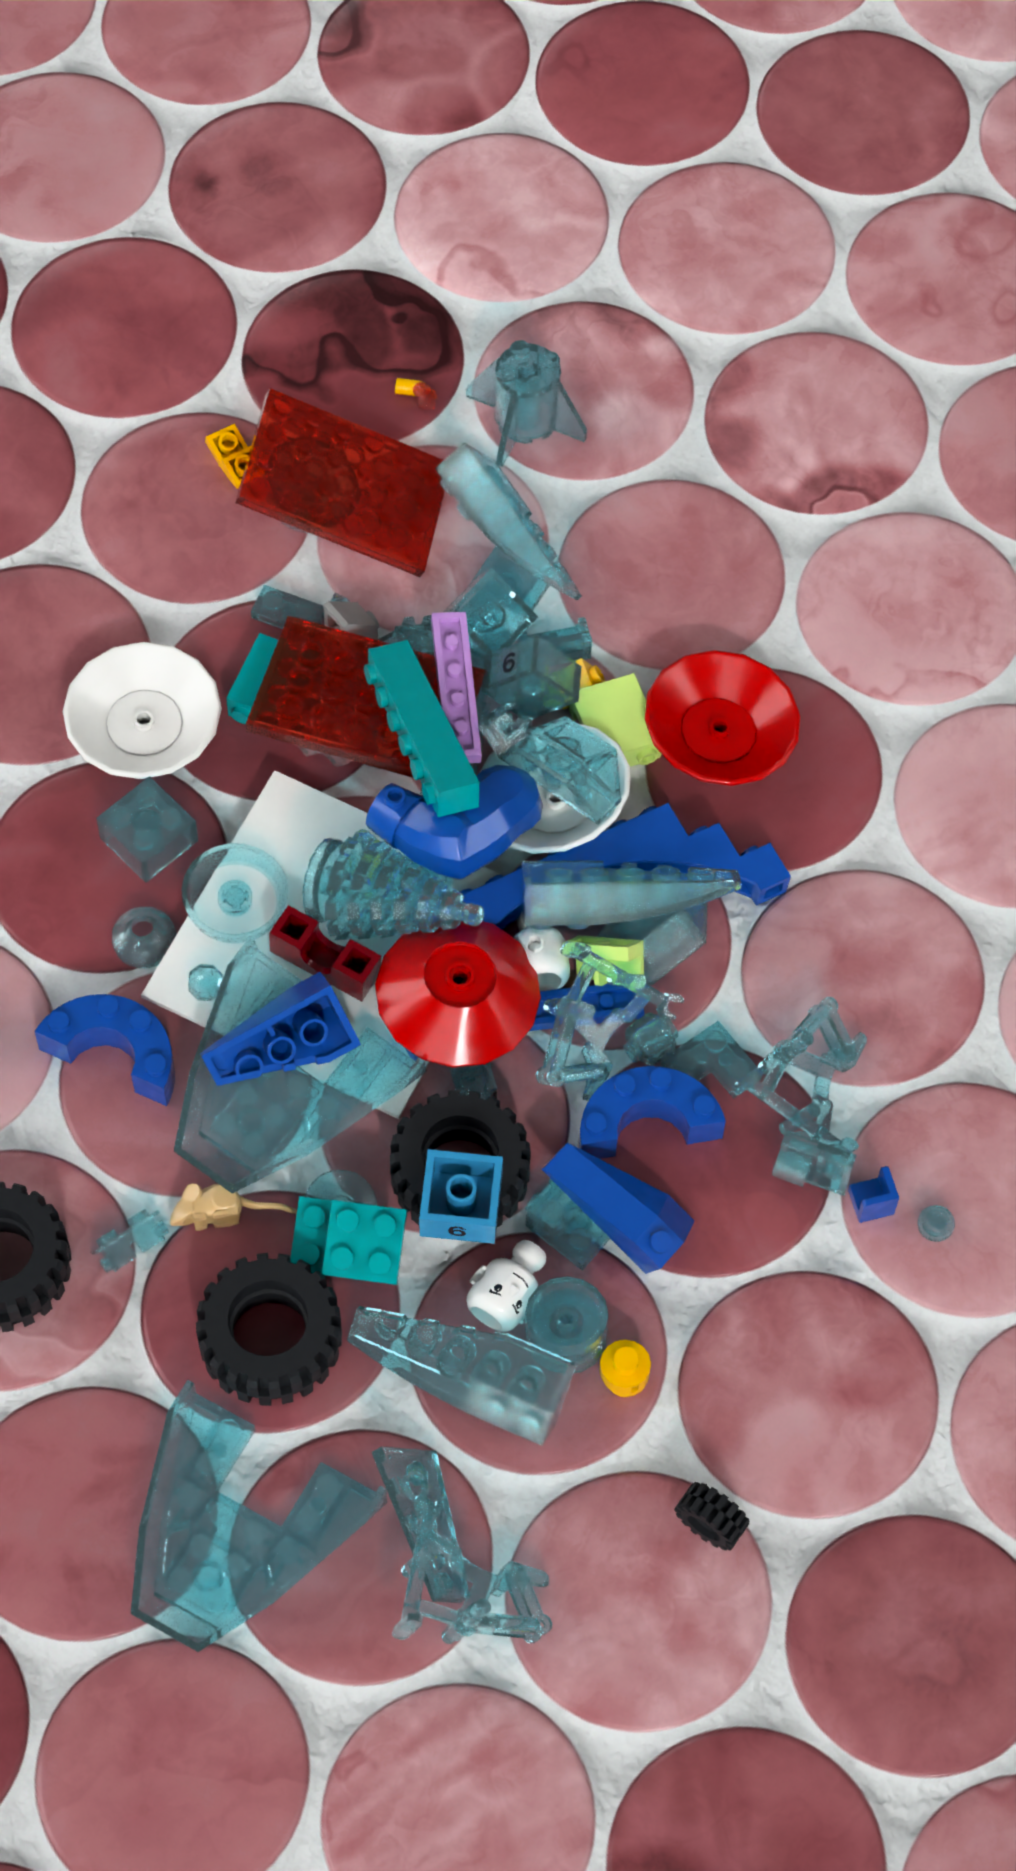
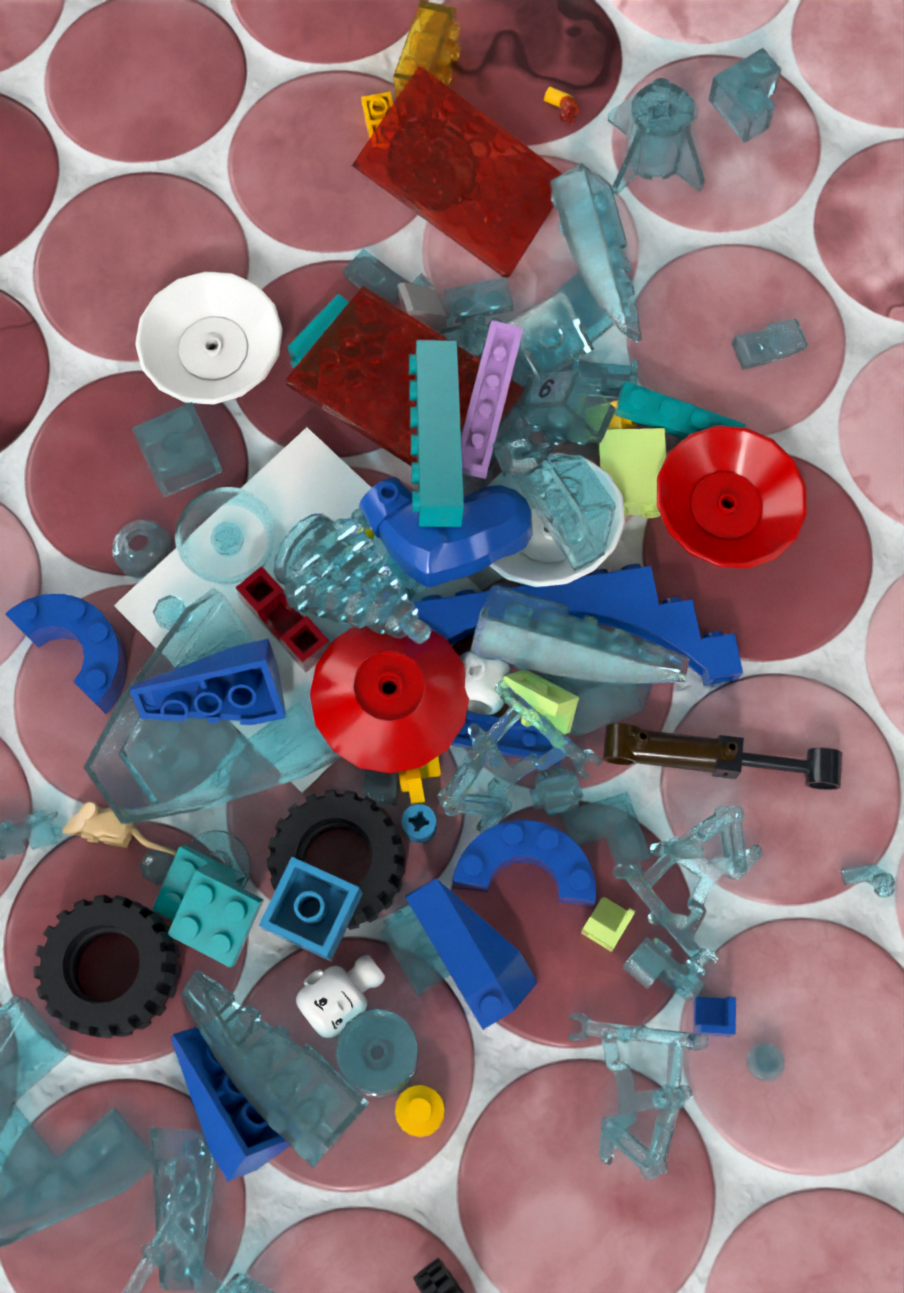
camera: 25 degrees right, 10 degrees up
(264, 366) = (429, 44): none -> clear yellow brick
(278, 1229) = (156, 866): none -> clear light blue tile
(402, 601) = (479, 298): none -> clear light blue plate
(445, 1434) = (231, 1125): none -> blue wedge
(508, 1070) = (411, 780): none -> yellow bracket
(528, 1117) = (418, 830): none -> dark azure wheel
(596, 336) = (743, 94): none -> clear light blue brick
(625, 658) = (662, 411): none -> teal plate
(707, 570) = (770, 345): none -> clear light blue slope
(742, 1147) = (607, 923): none -> yellowish green panel
(796, 962) = (720, 756): none -> piece
(857, 1274) = (668, 1098): none -> clear light blue piece
(975, 1027) = (873, 875): none -> clear light blue arm

